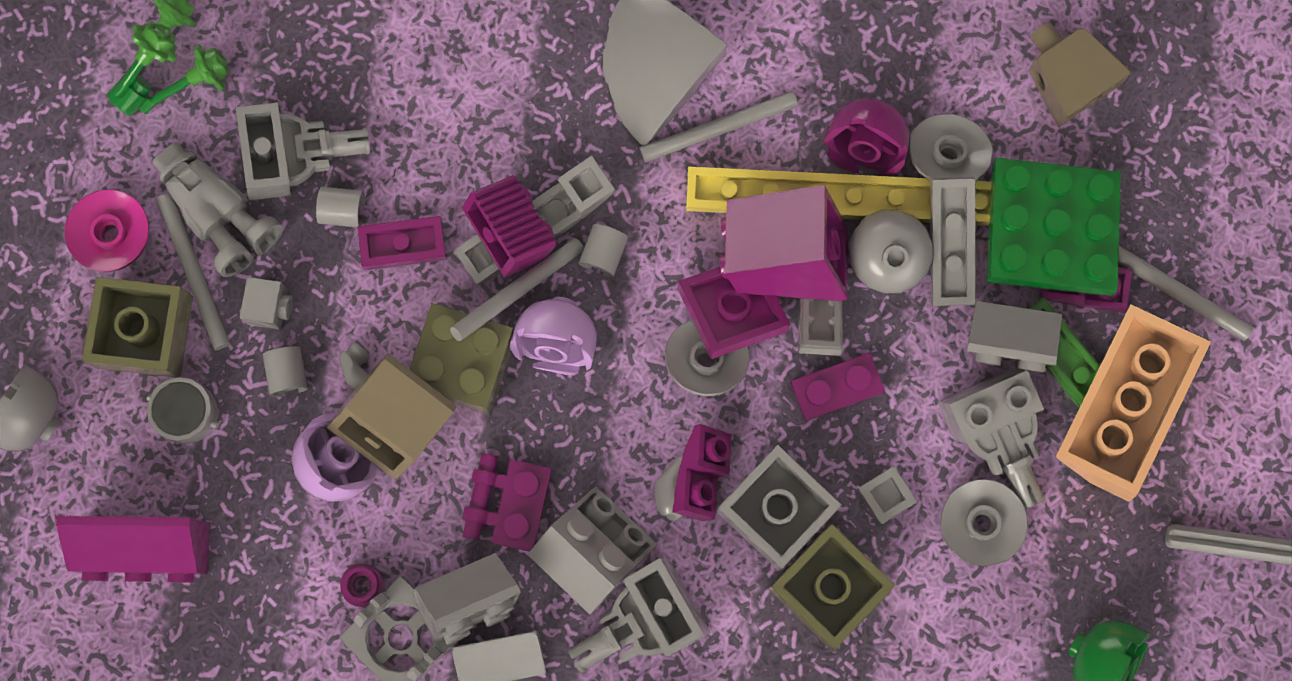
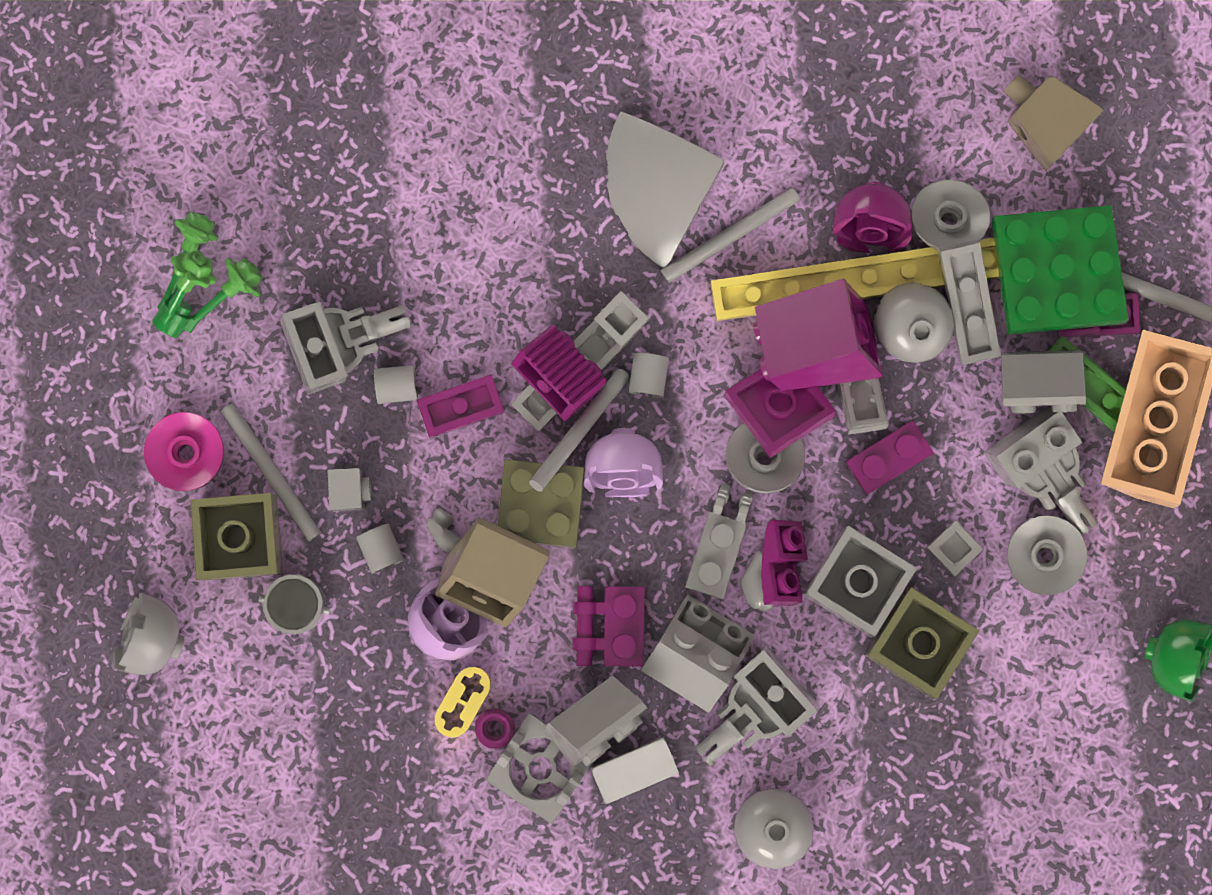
camera: 15 degrees left, 5 degrees up
(134, 547) = (283, 739): magenta slope -> none
(212, 203) = (274, 405): light grey piece -> none
(326, 543) = (471, 706): none -> light yellow beam
(639, 442) = (719, 547): none -> light grey hinge

